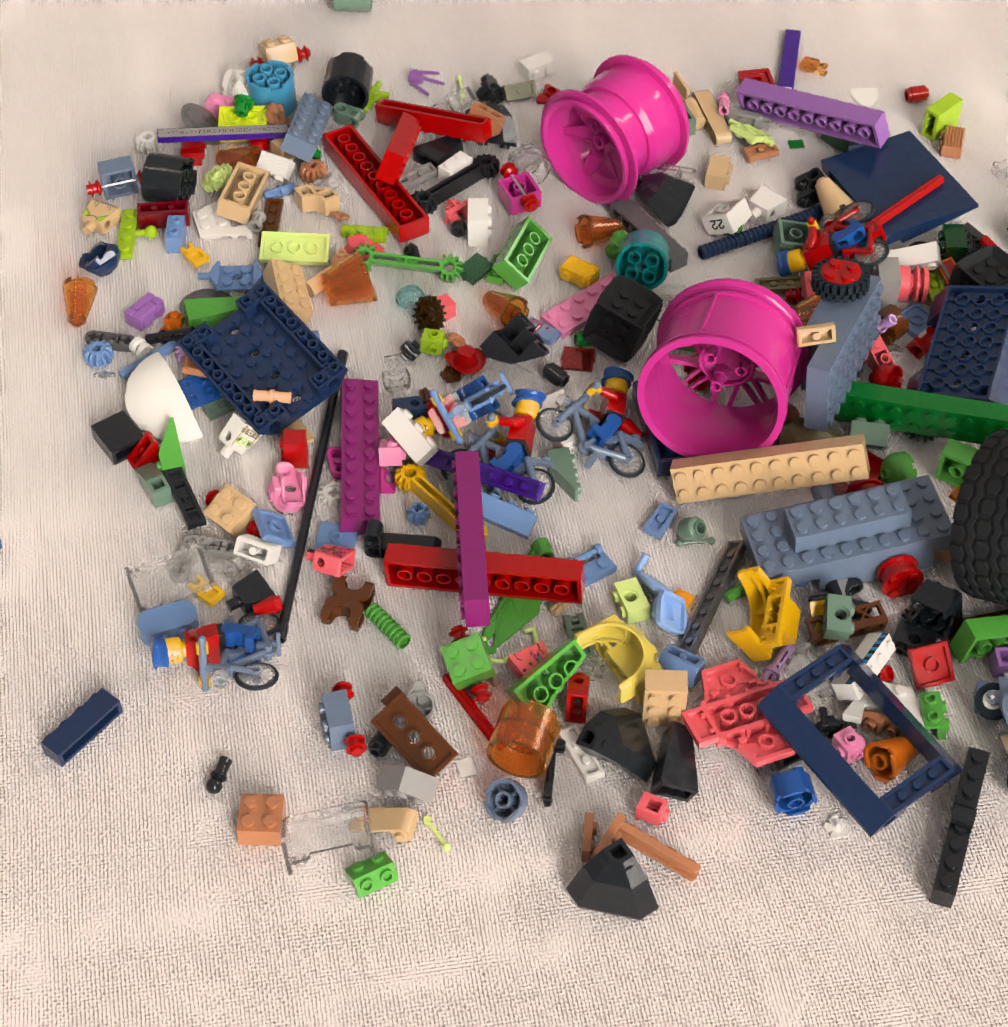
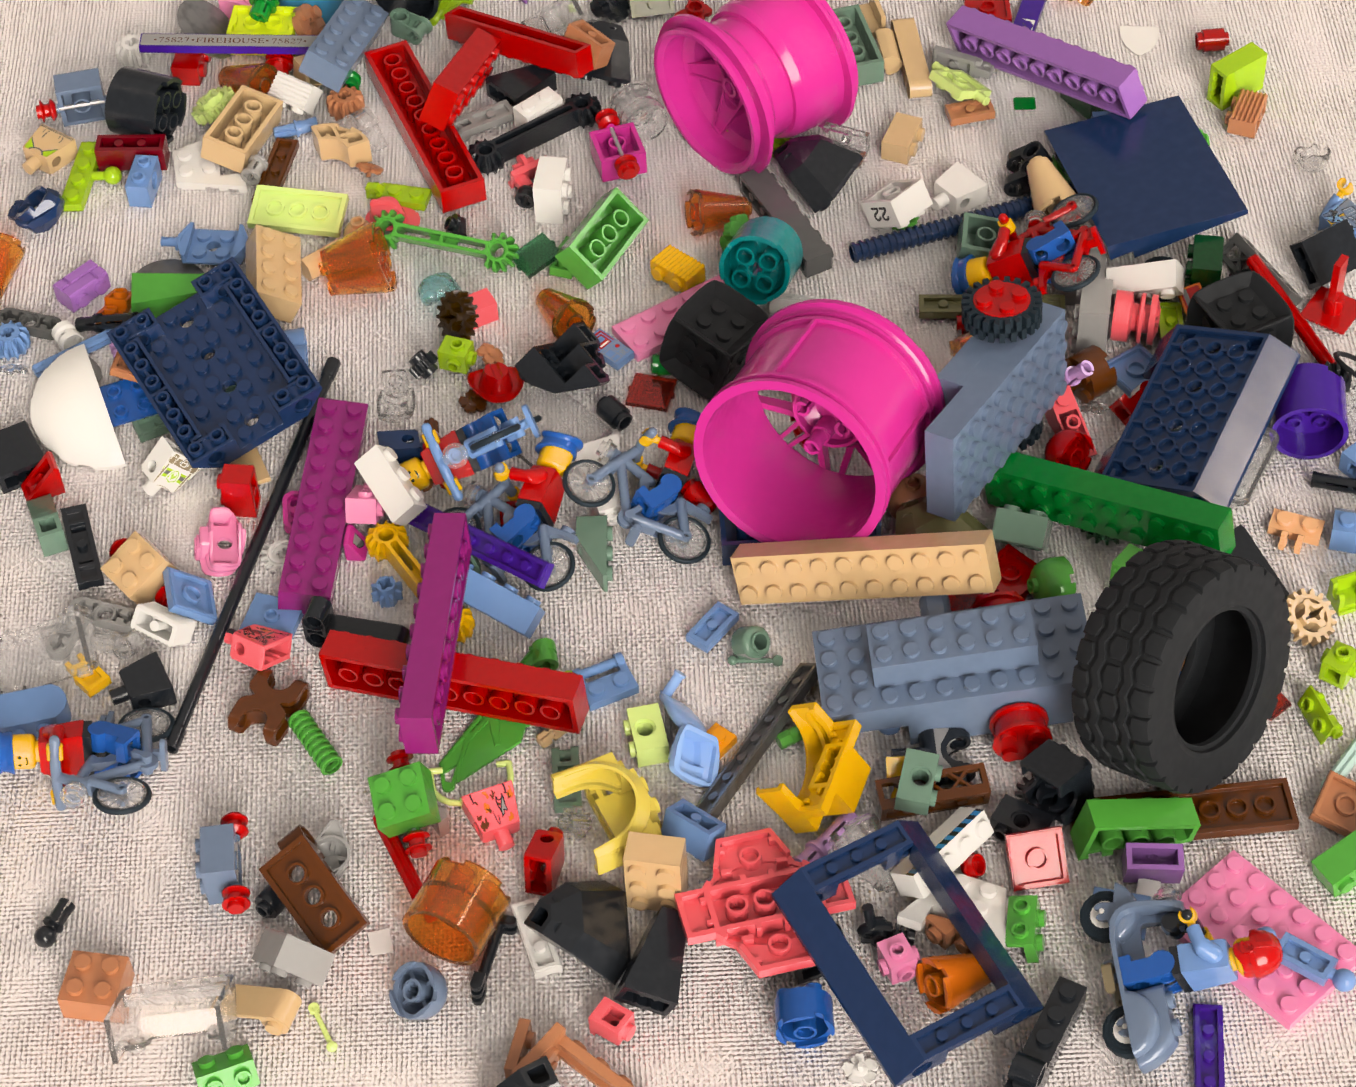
camera: 10 degrees right, 0 degrees up
(170, 451) = (76, 480): bright green slope -> none
(195, 257) = (164, 213): yellow plate -> none
(269, 605) = (163, 701): red cone -> none
(271, 396) = (218, 416): light nougat pin -> none
(549, 675) = (506, 830): bright green wedge -> none
(723, 103) = (931, 38): bright pink pin -> none
(815, 334) = (946, 386): tan brick -> none
(909, 199) = (1149, 198): red axle -> none

